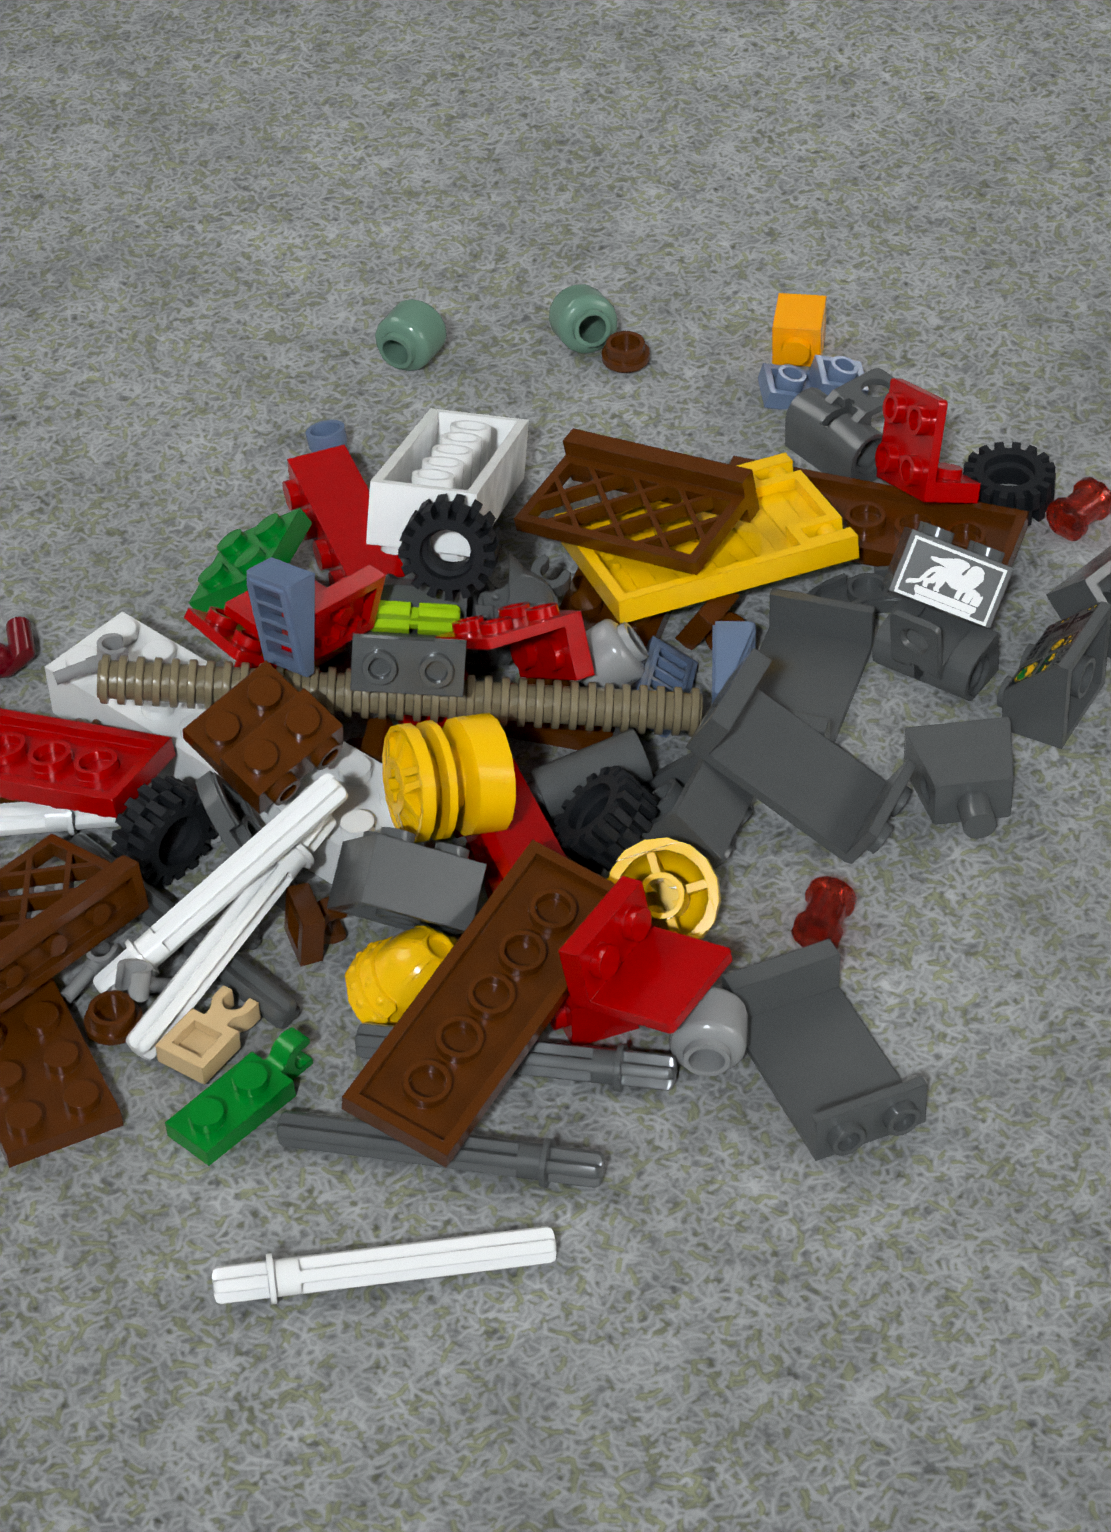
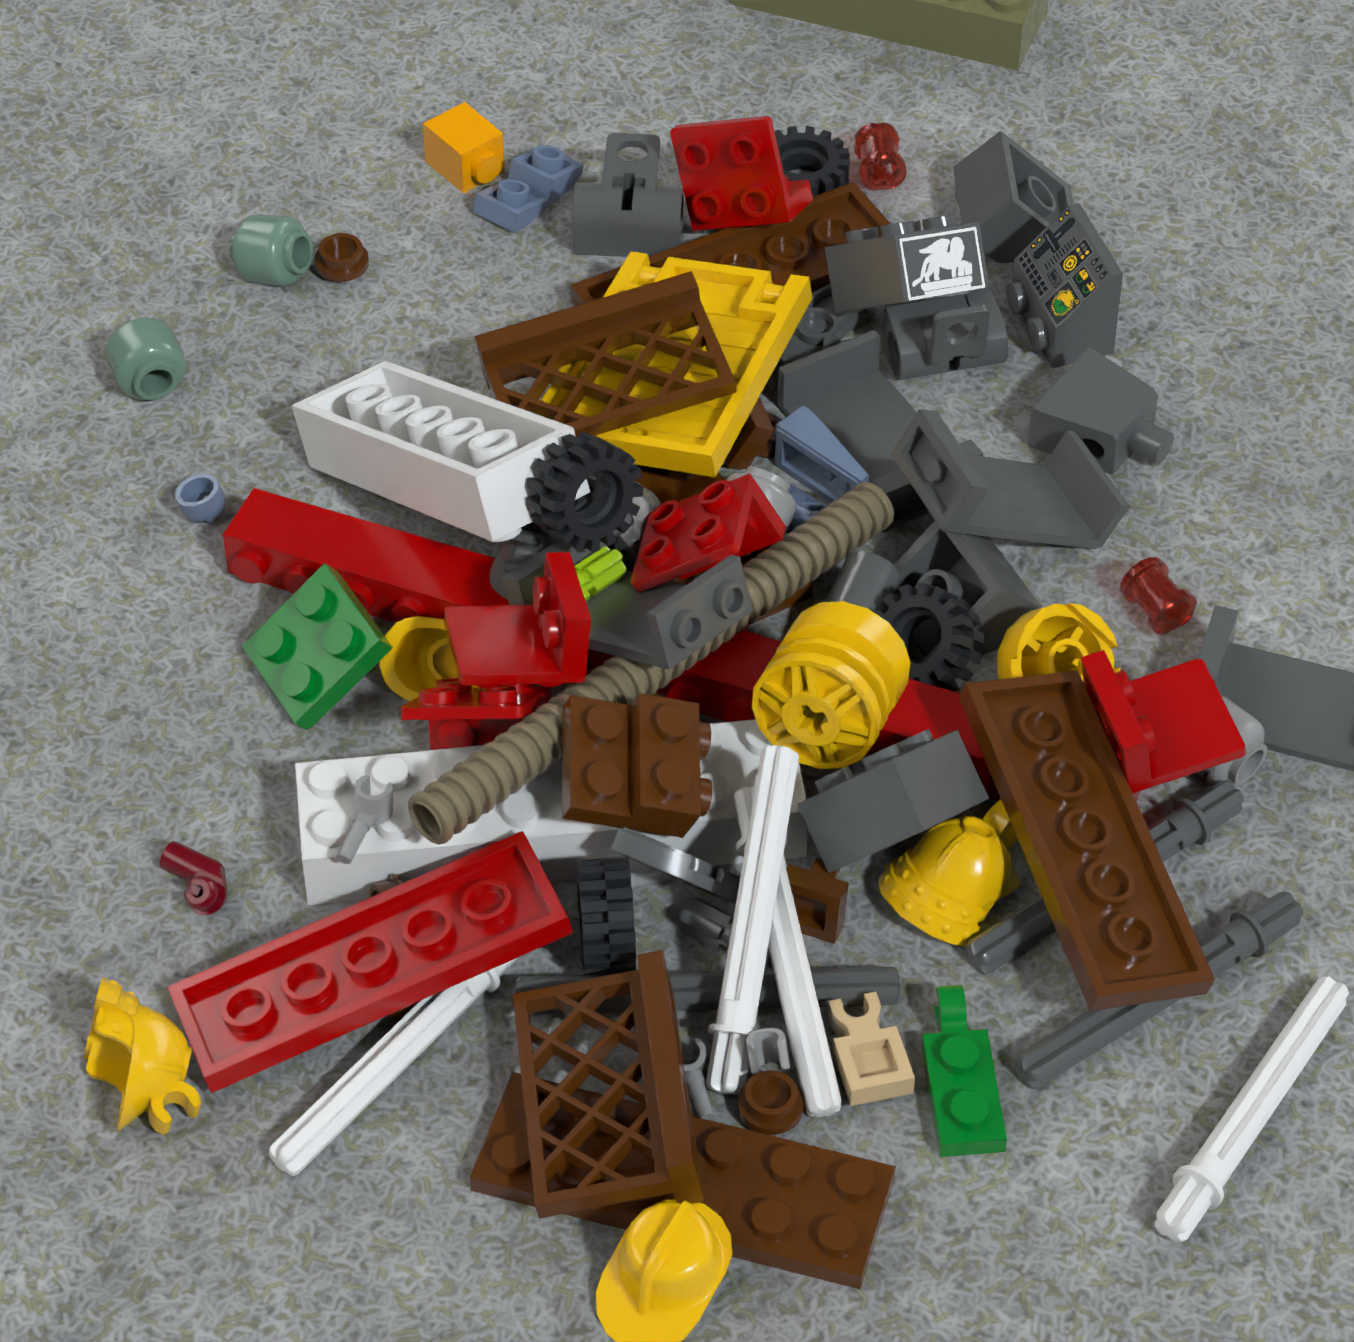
camera: 50 degrees left, 5 degrees up
(290, 590) = (559, 604): sand blue slope -> none

